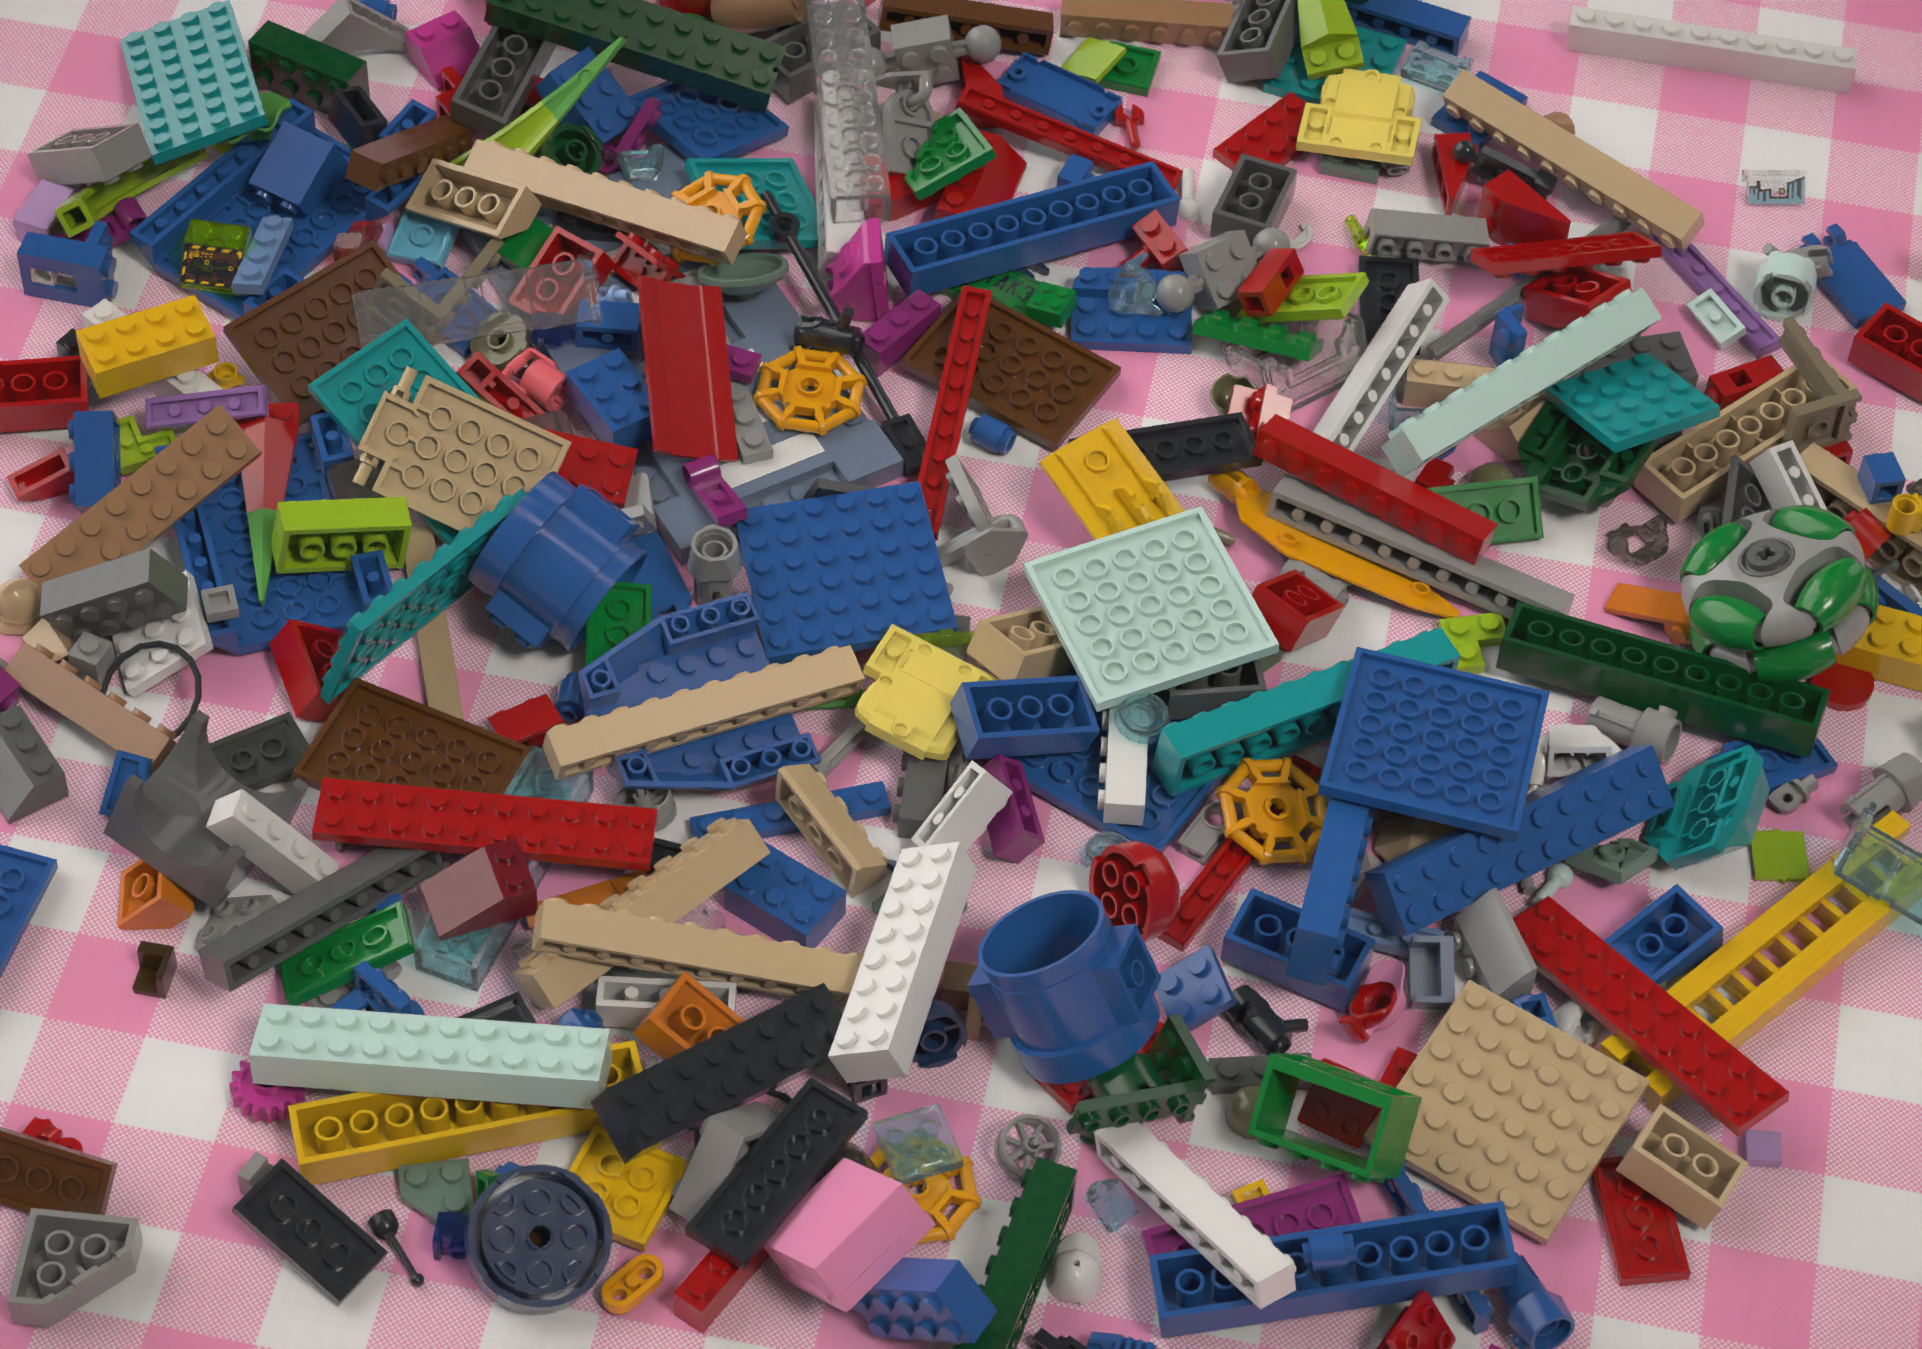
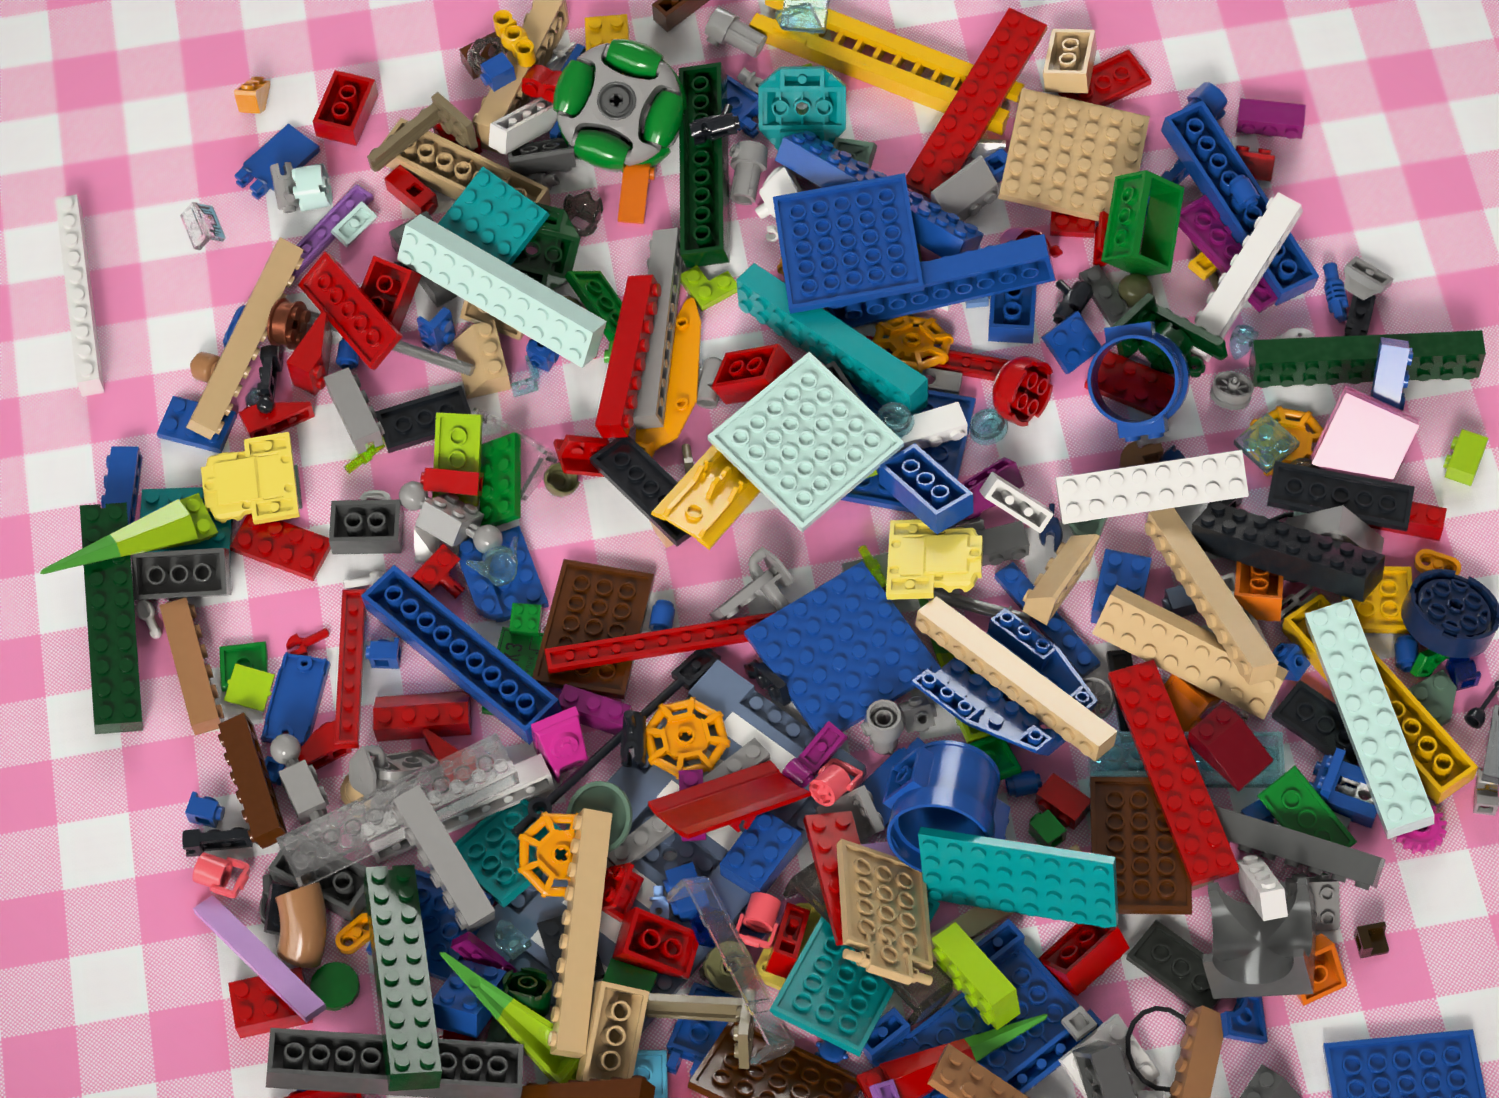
camera: 105 degrees left, 10 degrees up
(496, 694) = (1047, 829): none -> green brick
(667, 491) = (834, 781): none -> coral piece
(748, 95) = (444, 860): none -> light grey brick
(948, 155) = (416, 727): green plate -> none
(1019, 646) = (859, 519): tan brick -> none
(1382, 364) = (510, 395): white brick -> none
(1431, 972) = (994, 220): sand blue panel -> none
(1433, 67) = (170, 463): clear light blue plate -> none
(1580, 198) = (287, 323): none -> copper wheel
(1668, 936) = (905, 114): blue slope -> none
(1699, 678) = (715, 126): none -> black piece

